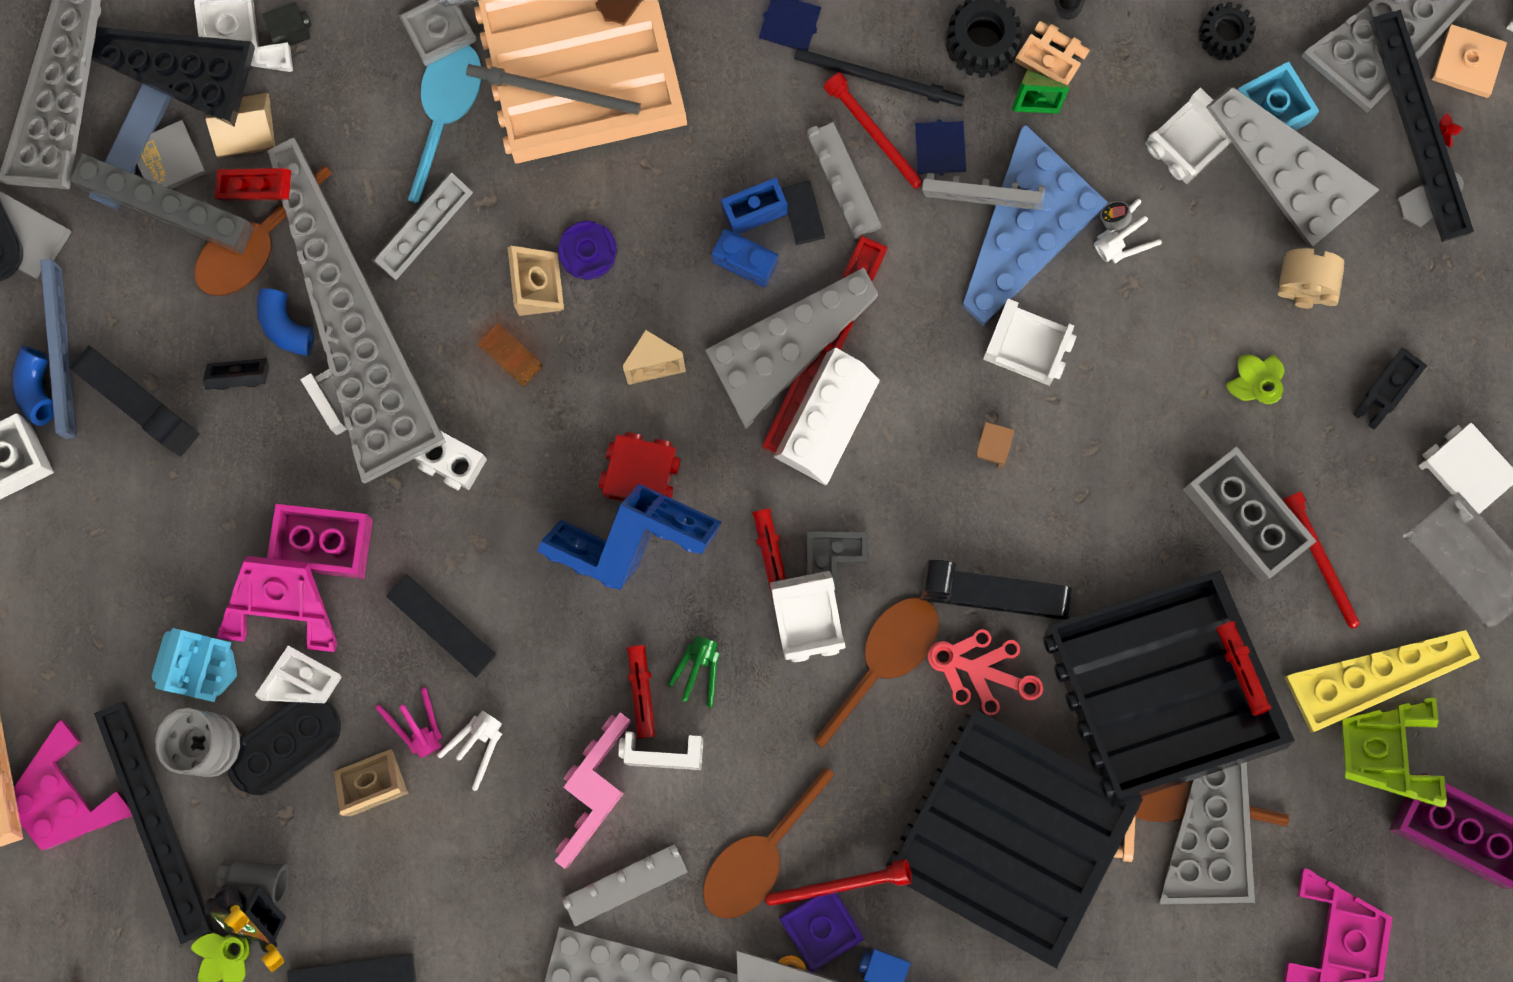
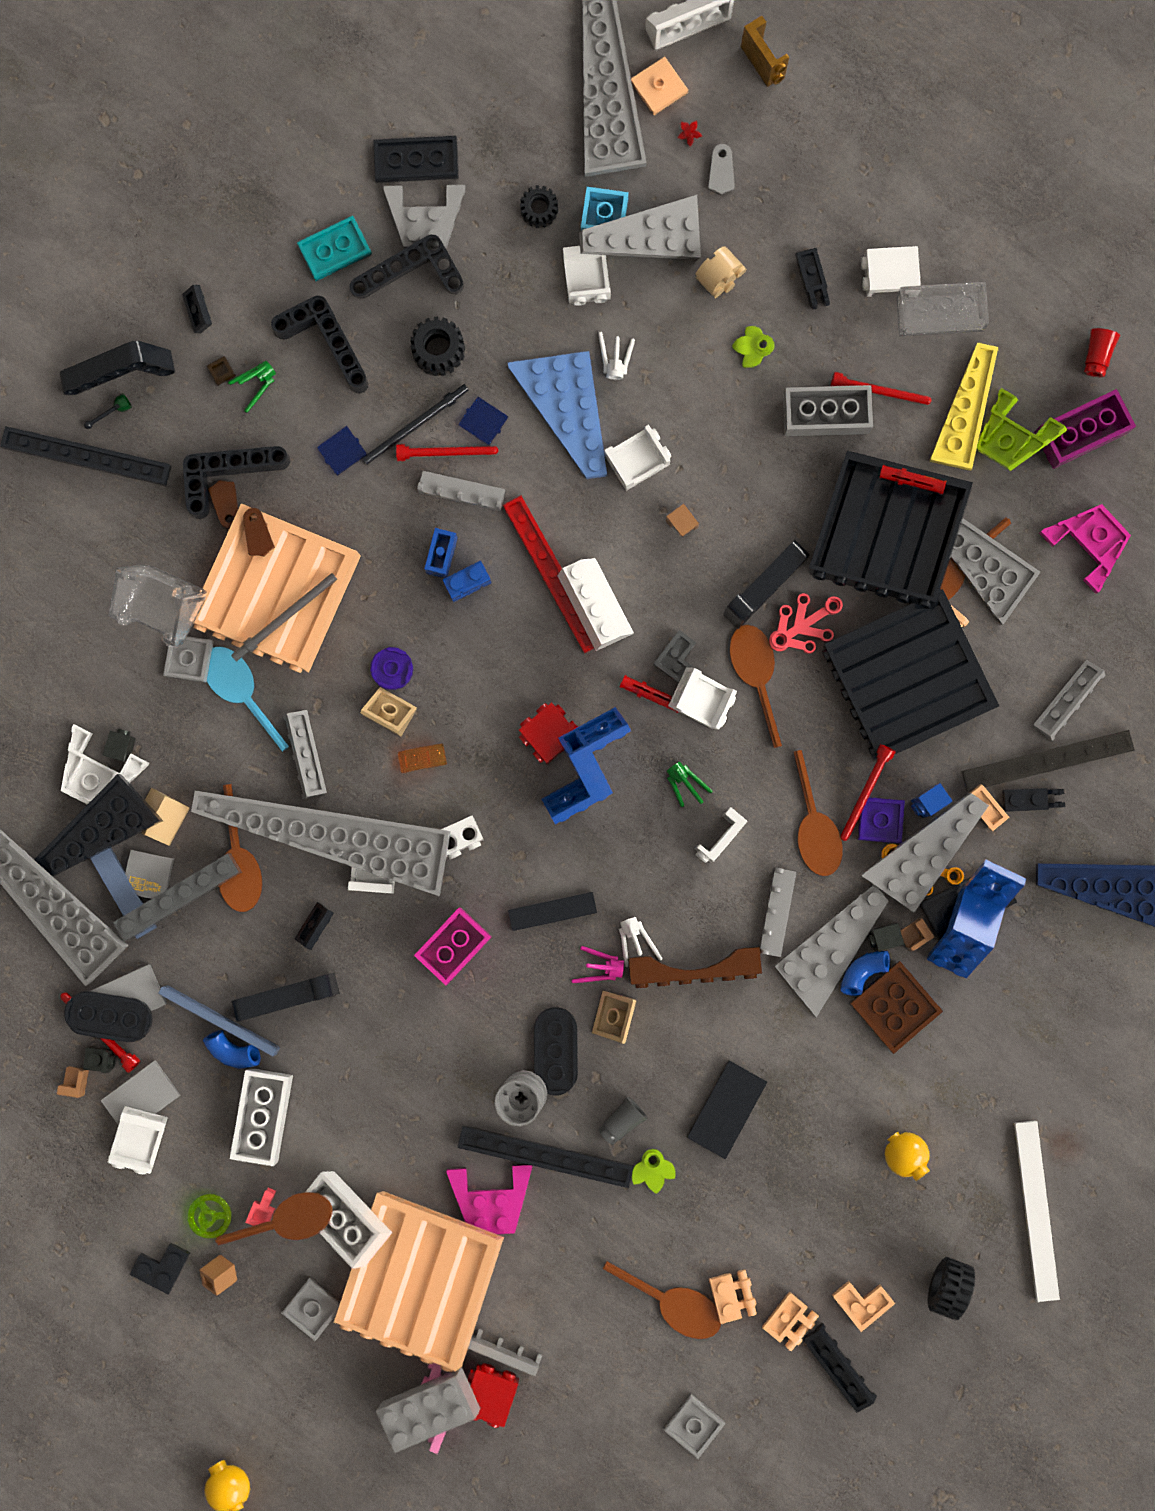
camera: 55 degrees left, 5 degrees up
(194, 665) = (471, 1070): medium azure piece -> none
(250, 915) = (642, 1136): black torso -> none
(252, 184) = (206, 835): red plate -> none
(277, 591) = (465, 991): dark pink wing -> none
(279, 327) = (303, 880): blue cylinder -> none
(298, 680) = (524, 1015): white wing -> none
(451, 785) = (740, 962): none -> reddish brown arch
(592, 789) = (711, 892): bright pink bracket -> none
(641, 692) = (653, 811): red pin -> none
(652, 360) = (489, 675): tan slope -> none
(778, 349) = (534, 605): light grey wing -> none
(803, 213) = (464, 528): black tile -> none
(983, 193) = (532, 417): light grey hinge -> none
(1039, 94) = (496, 341): green slope -> none
(1048, 61) = (479, 321): light nougat plate -> none
(1116, 215) = (600, 352): tile -> none
(1421, 126) = (678, 142): black plate -> none

